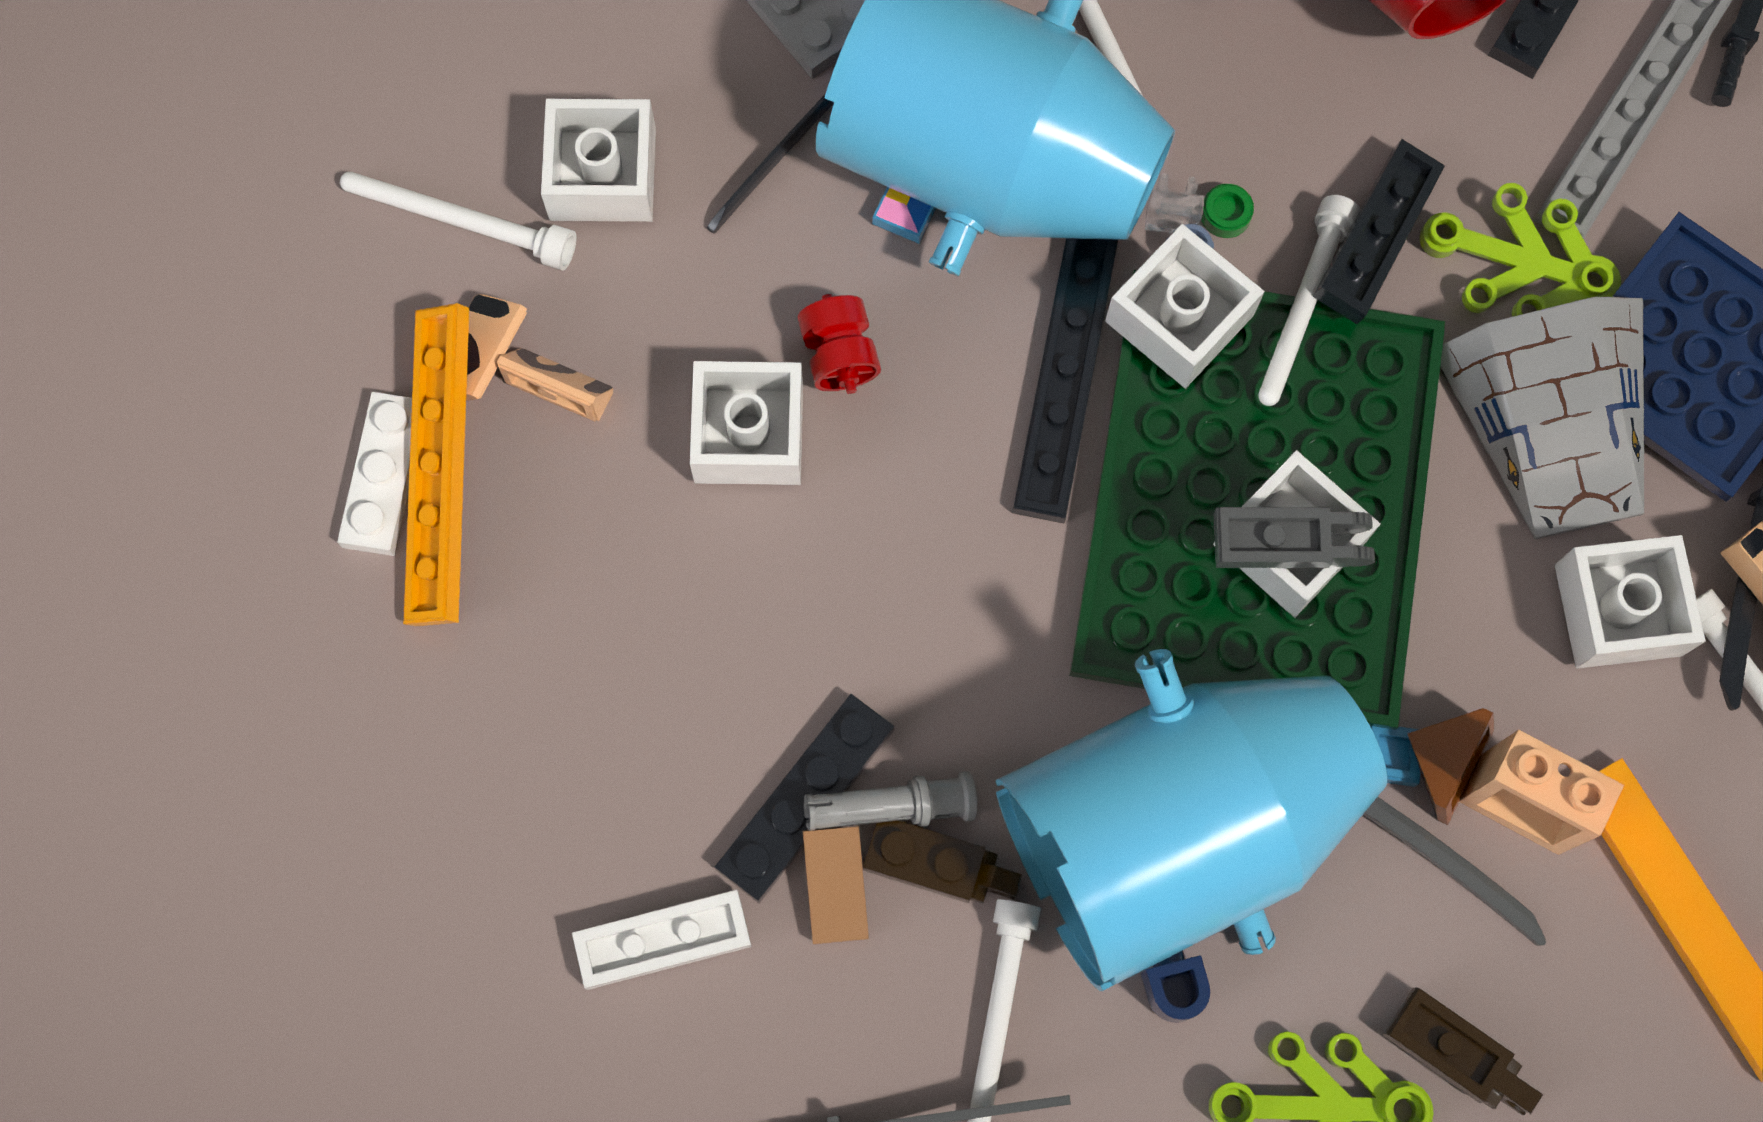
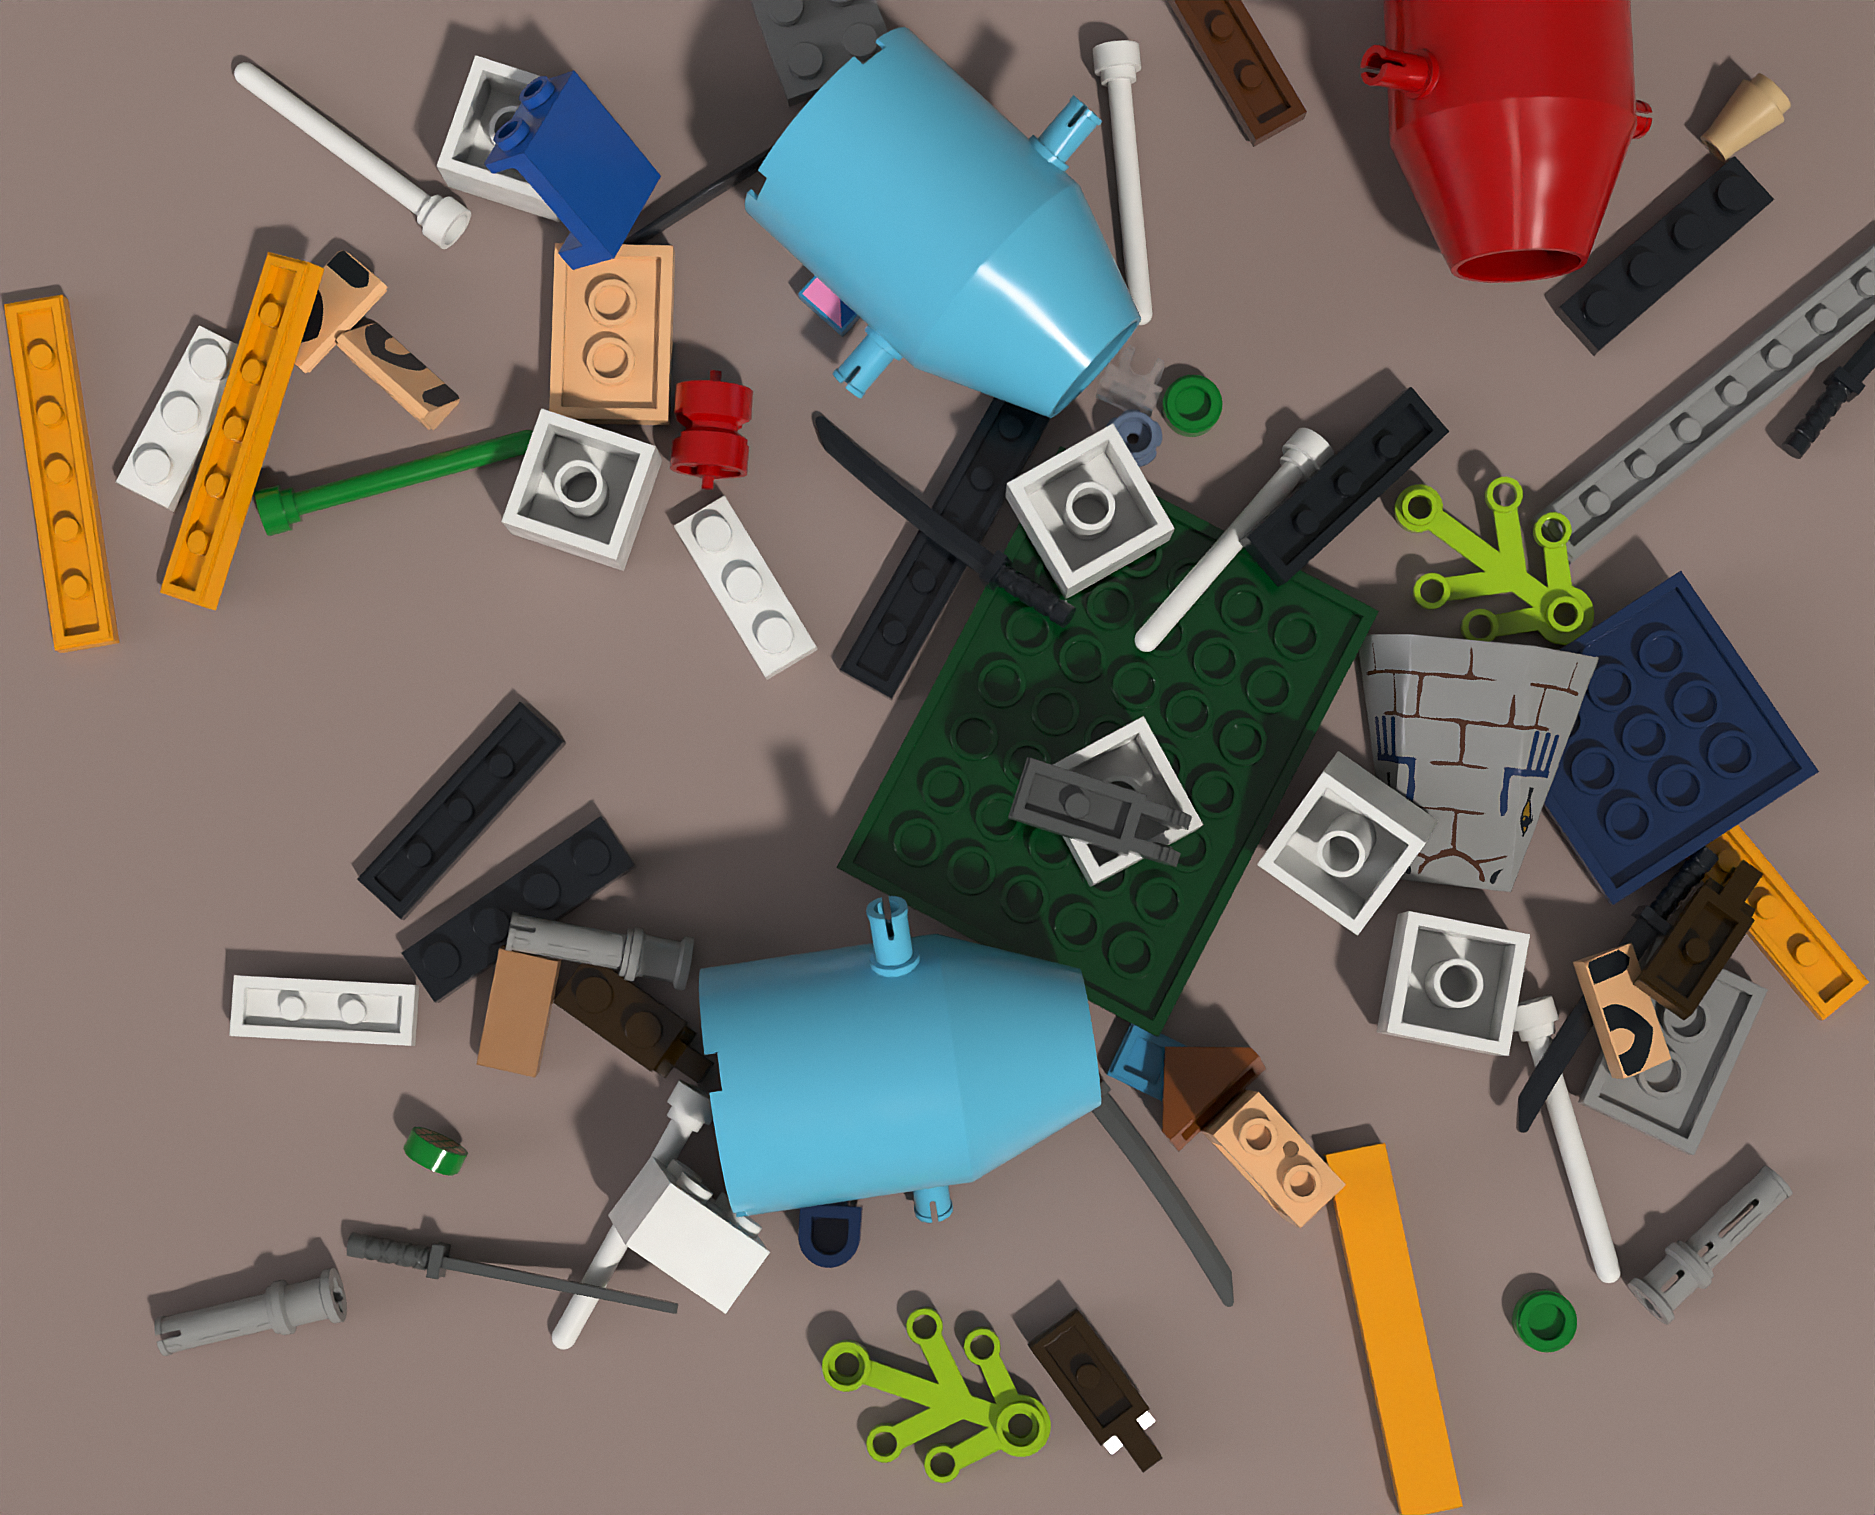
camera: 20 degrees right, 10 degrees up
(287, 554) = (61, 474): none -> light orange tile
(492, 518) = (284, 507): none -> green piece
(663, 155) = (577, 165): none -> blue panel
(726, 730) = (461, 811): none -> black tile
(728, 290) = (614, 337): none -> light nougat plate
(801, 1033) = (435, 1151): none -> green tile
(909, 467) = (745, 587): none -> white plate
(1060, 1023) = (688, 1233): none -> white brick
(1114, 380) = (992, 568): none -> black sword
(1499, 511) = (1348, 843): none -> white brick

